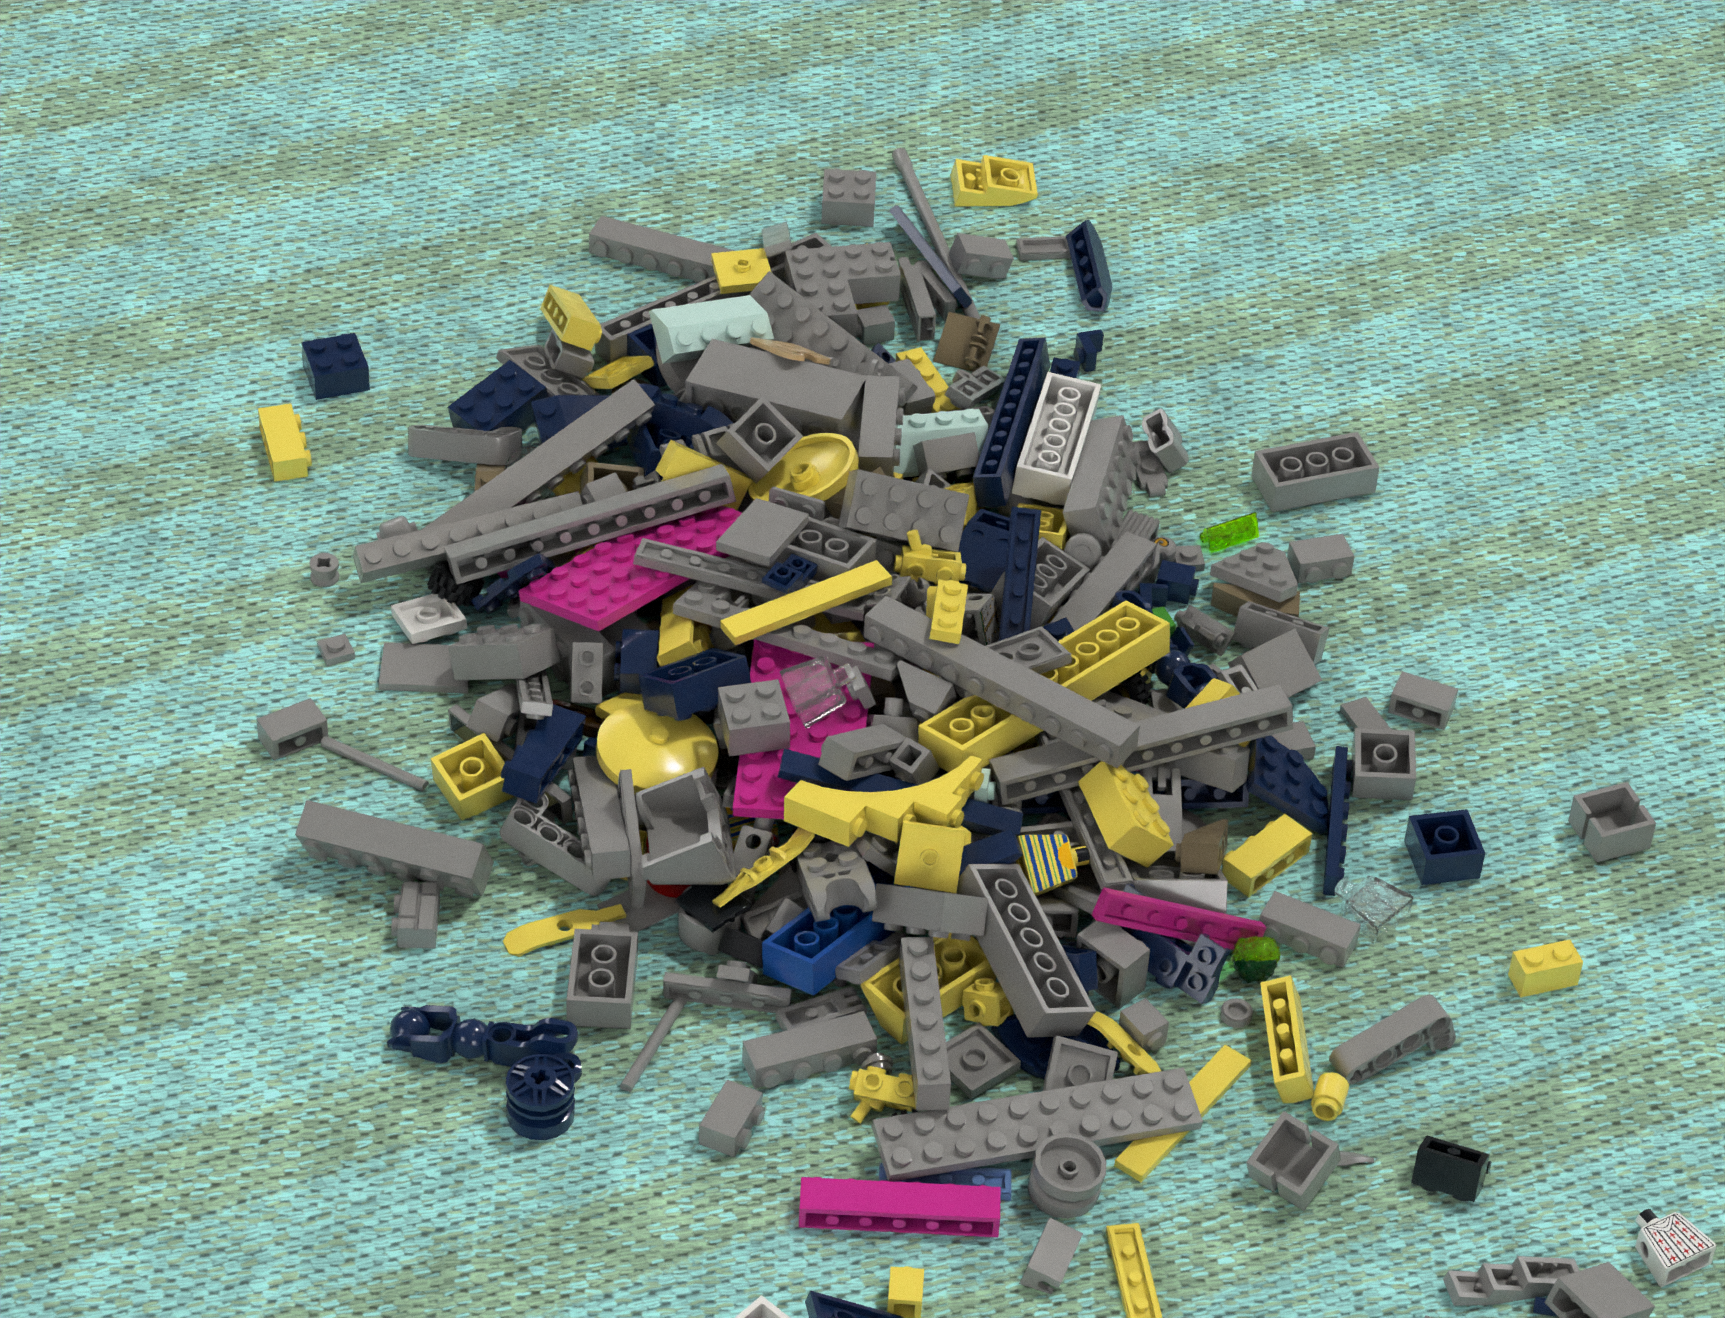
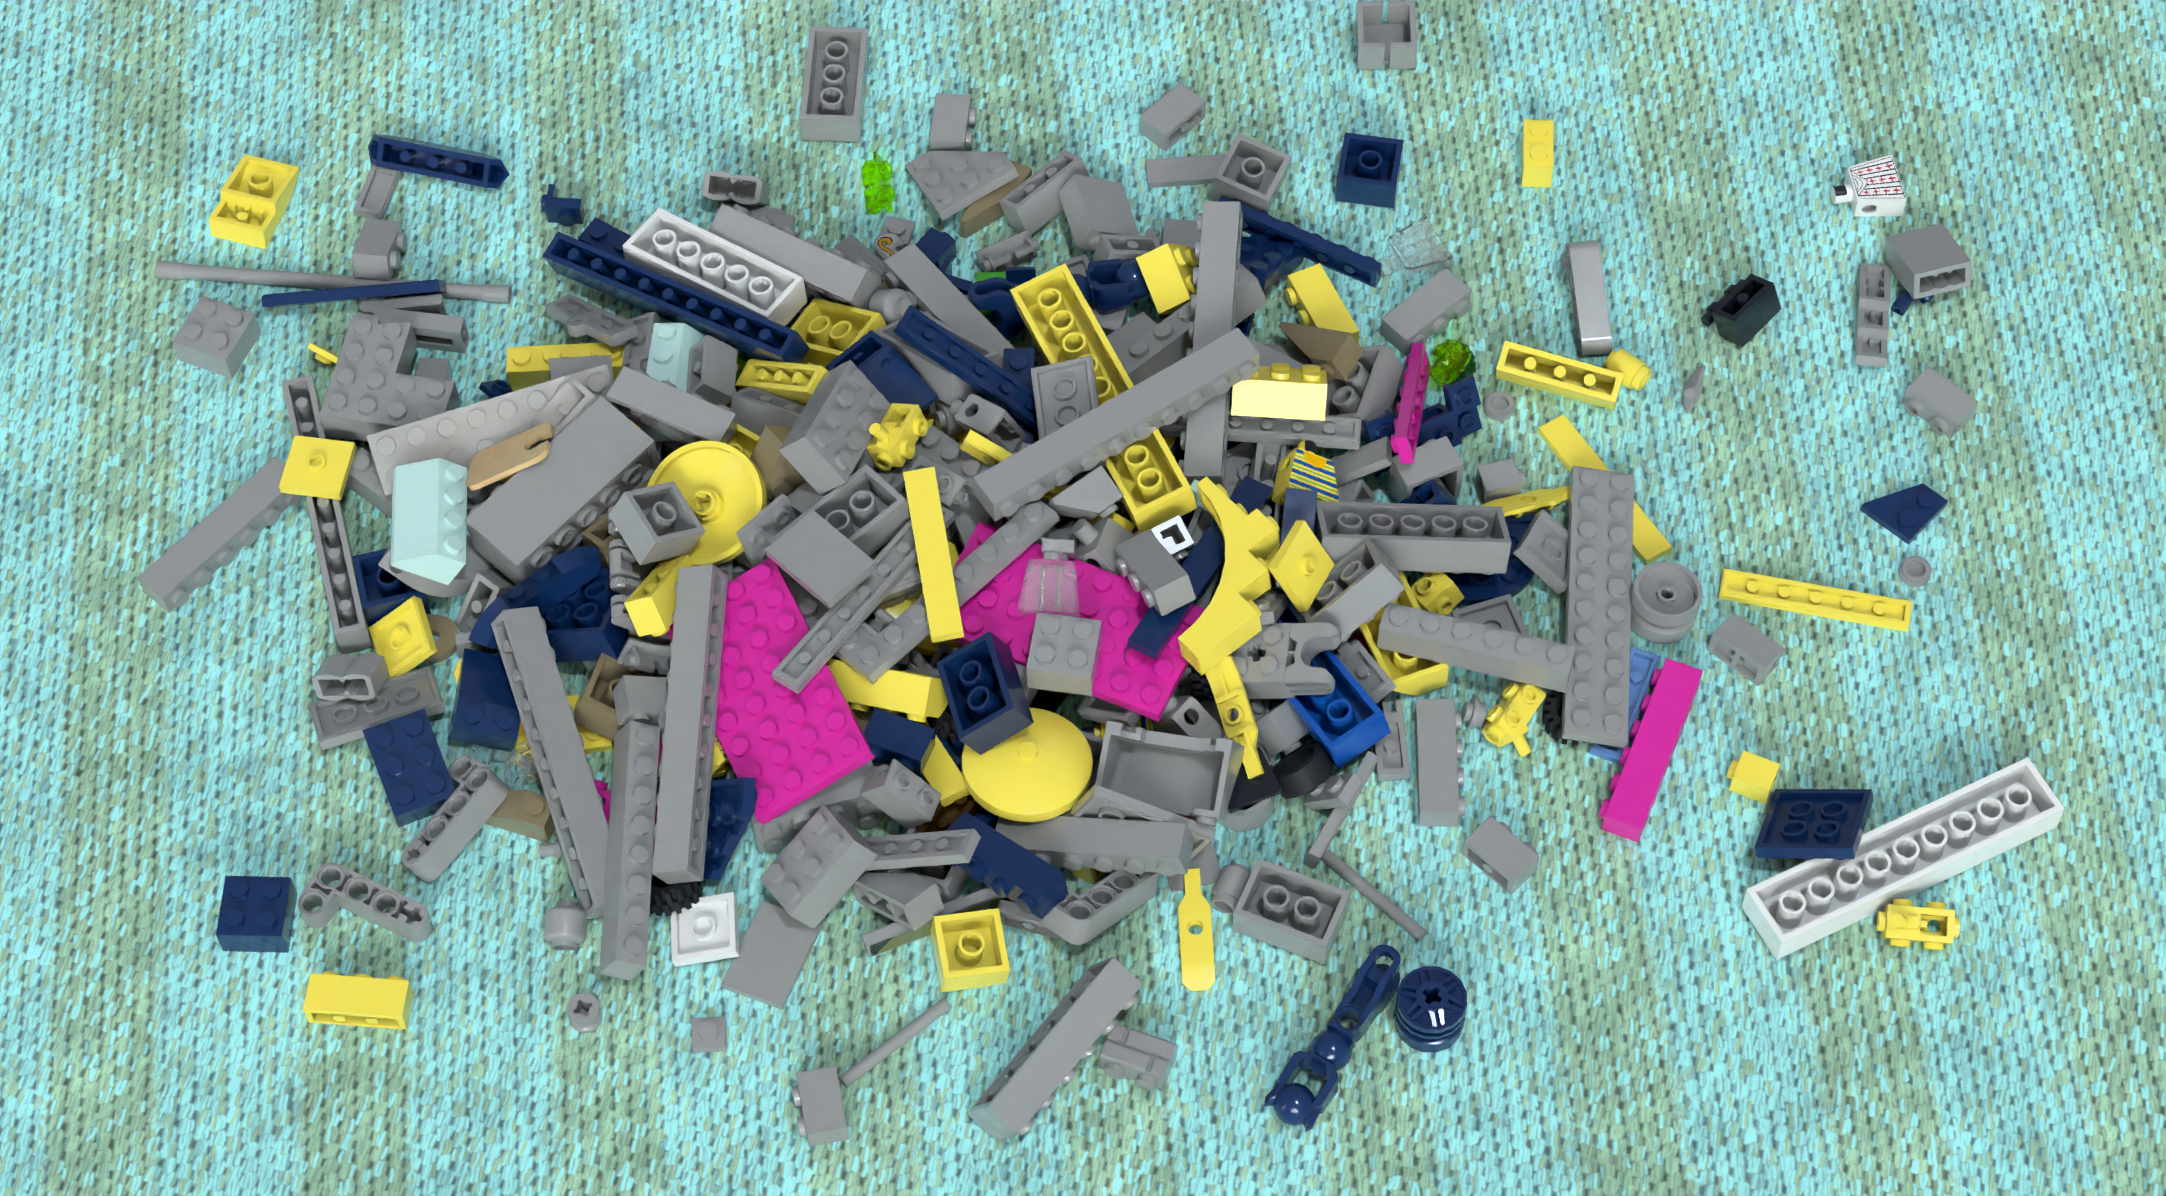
camera: 65 degrees left, 15 degrees up
(376, 406) = (369, 907): none -> light grey beam
(571, 318) = (309, 654): light yellow brick -> none
(776, 239) = (269, 421): light grey tile -> none
(791, 574) = (891, 558): dark blue slope -> none
(917, 590) = (927, 448): light grey hinge -> none
(948, 611) = (1021, 431): light yellow plate -> none
(966, 341) = (504, 308): dark tan hinge -> none
(1290, 1164) = (1710, 422): light grey piece -> none

